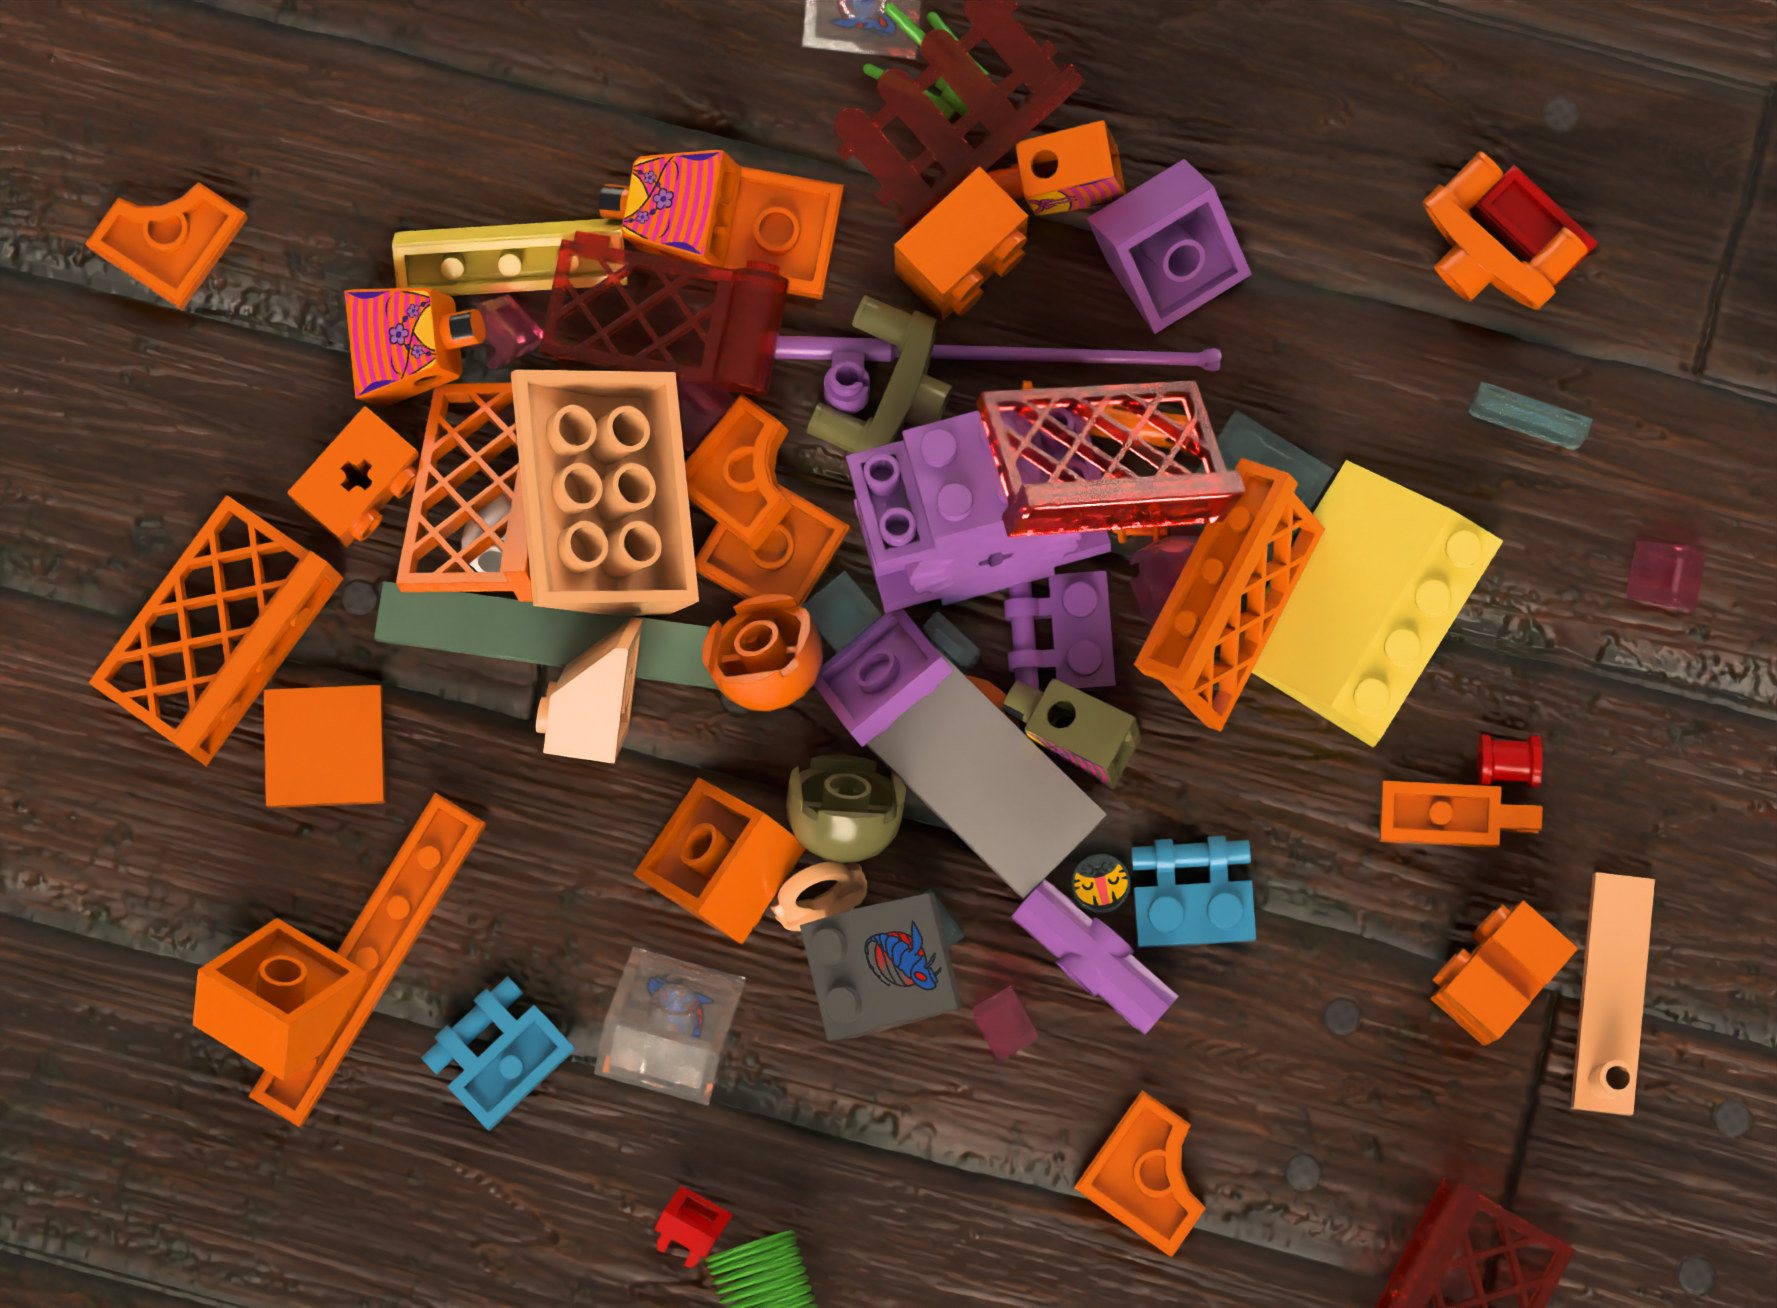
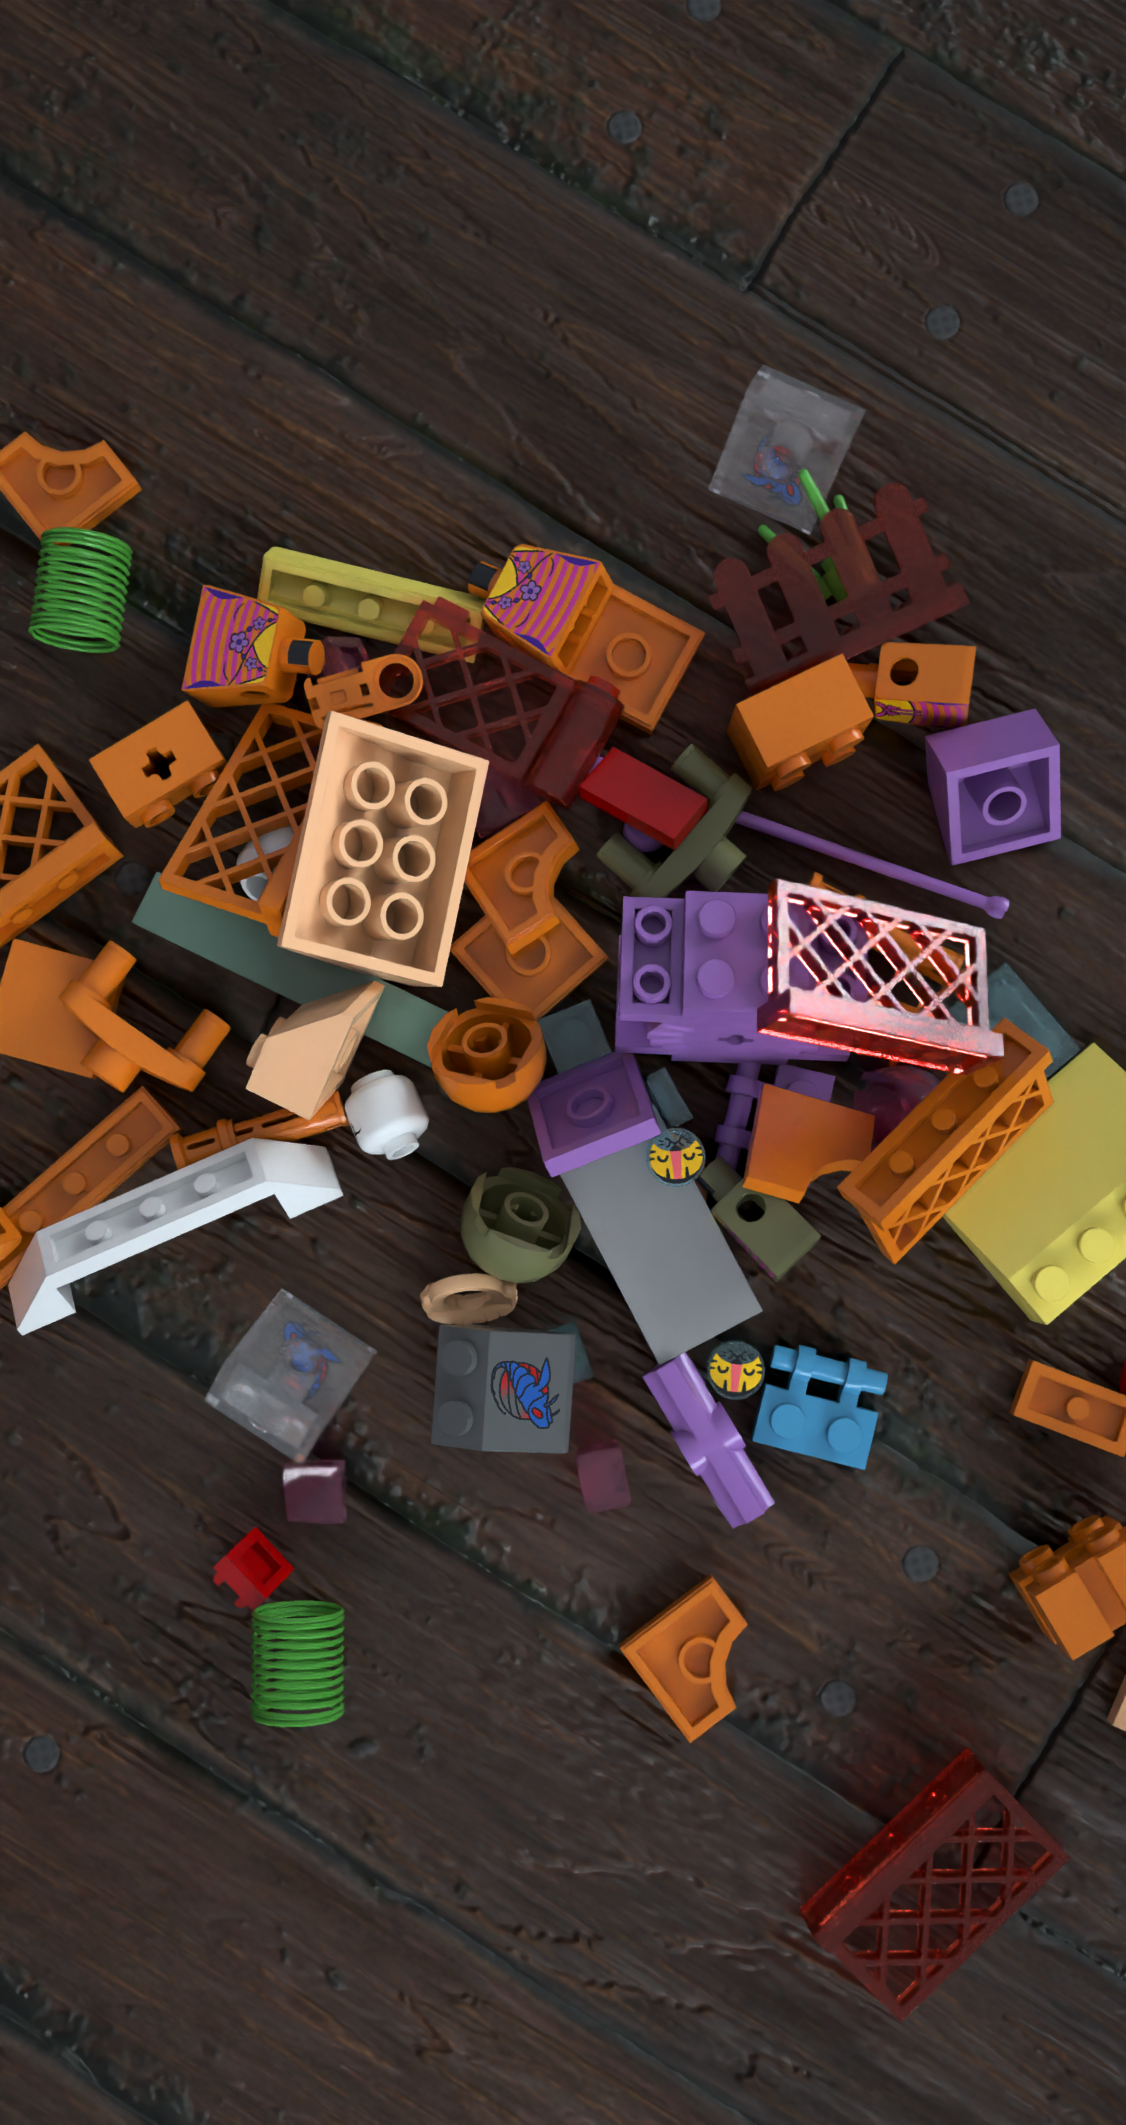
camera: 15 degrees right, 5 degrees up
(234, 365) = (73, 622): none -> bright green piece
(408, 758) = (122, 1048): none -> orange connector
(493, 905) = (161, 1210): none -> white slope
(507, 1068) = (131, 1365): dark azure plate -> none
(530, 345) = (358, 692): none -> orange piece
(540, 819) = (277, 1126): none -> orange pin
(682, 743) = (386, 1114): none -> white head
(720, 860) = (386, 1237): orange slope -> none
(728, 1131) = (315, 1491): none -> clear pink slope
(835, 361) = (643, 798): none -> red tile
(975, 693) = (675, 1157): none -> tile
(1089, 637) = (801, 1139): none -> orange tile

